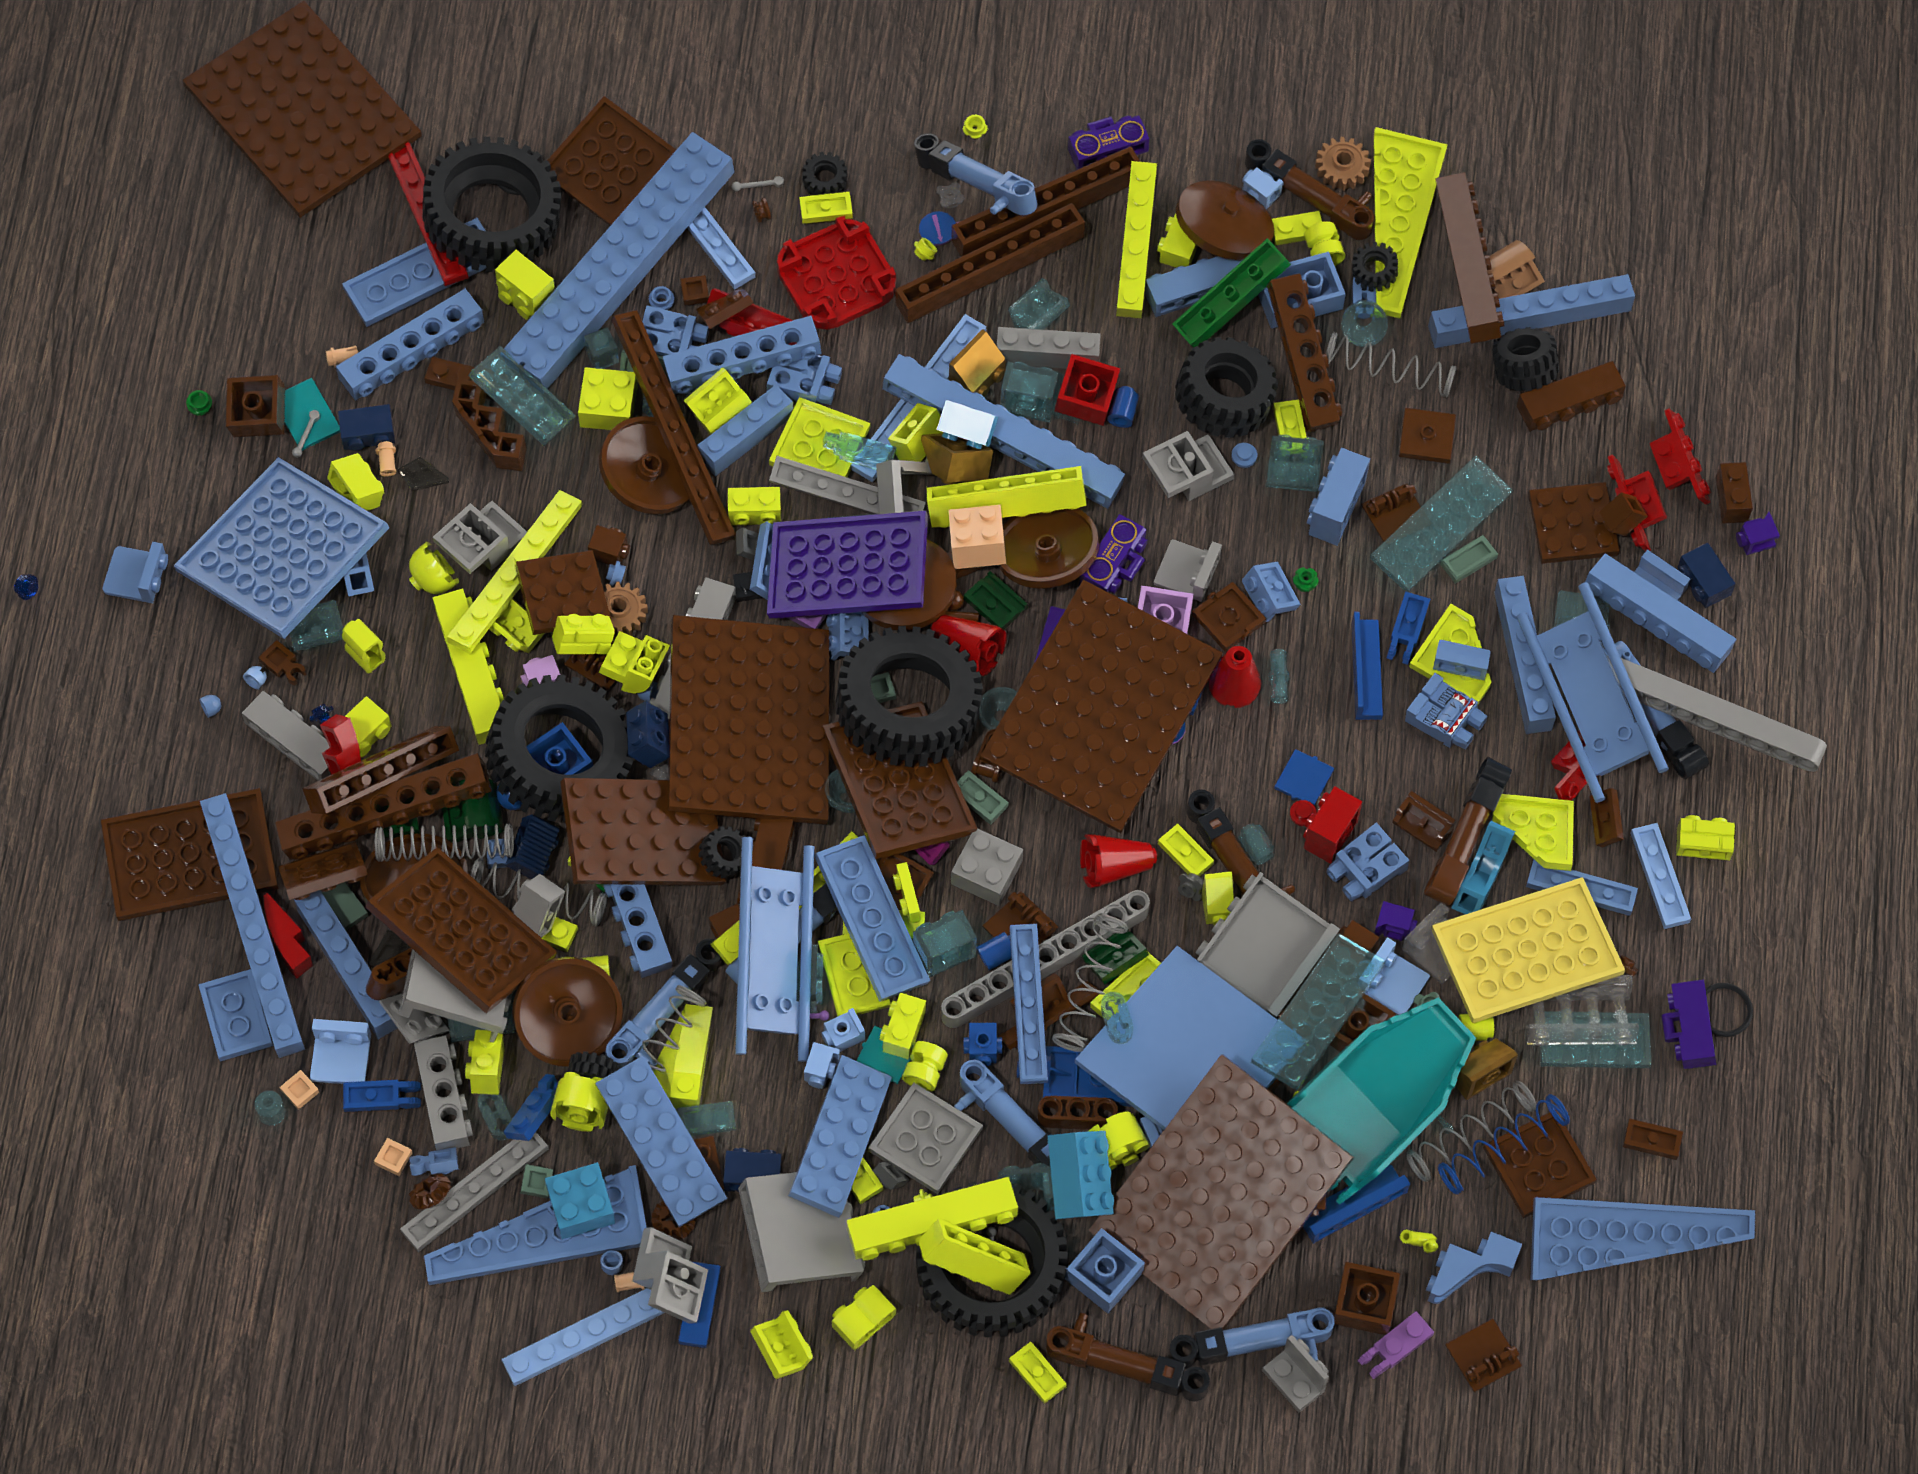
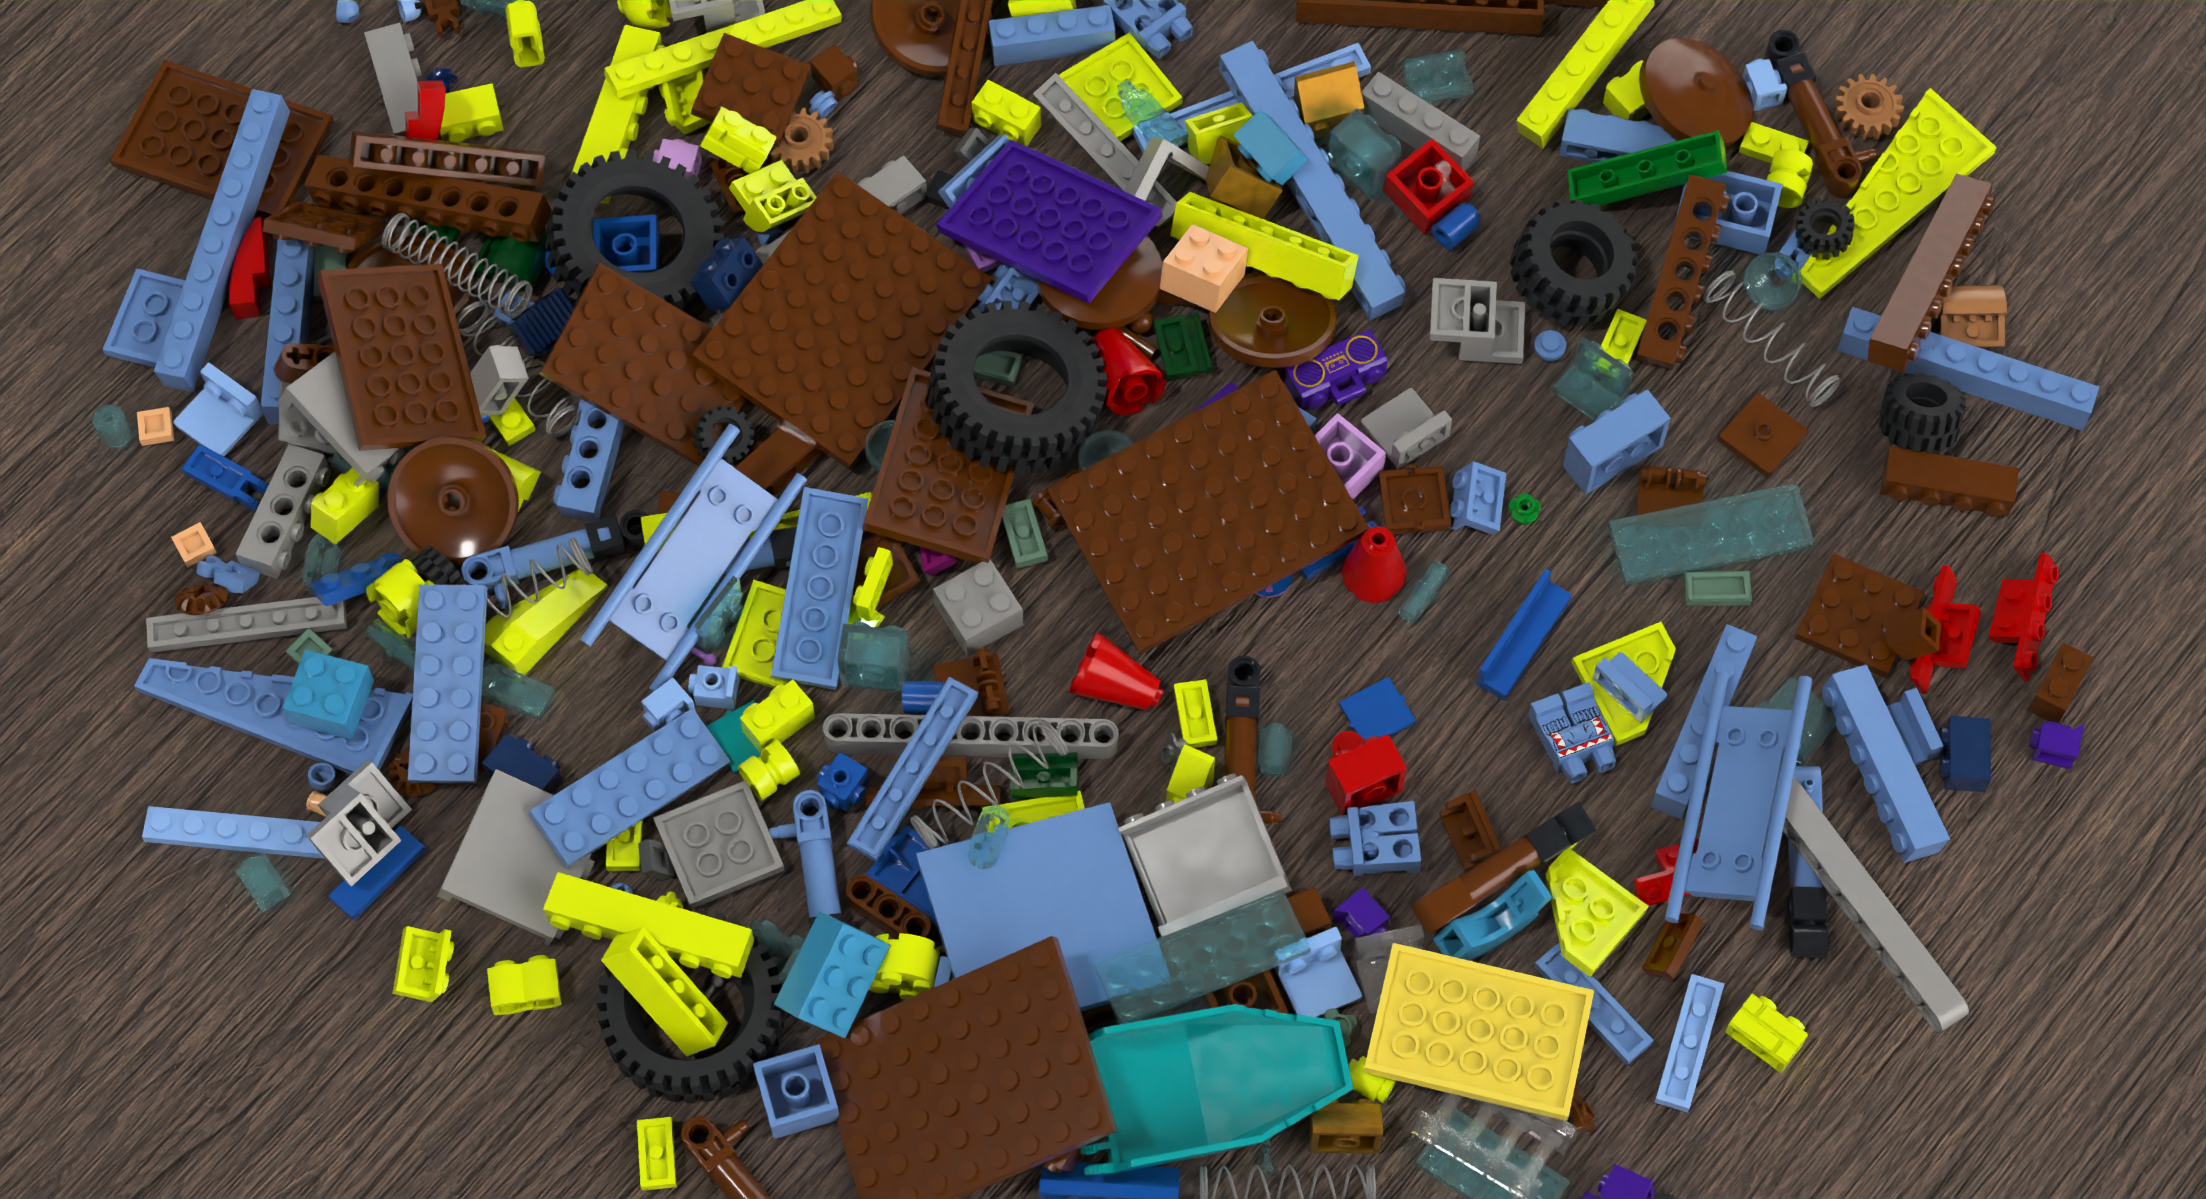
camera: 35 degrees right, 0 degrees up
(596, 1139) = (395, 645): none -> clear light blue pin
(624, 1360) = (262, 882): none -> clear light blue brick
(1408, 624) = (1600, 618): blue hinge -> none

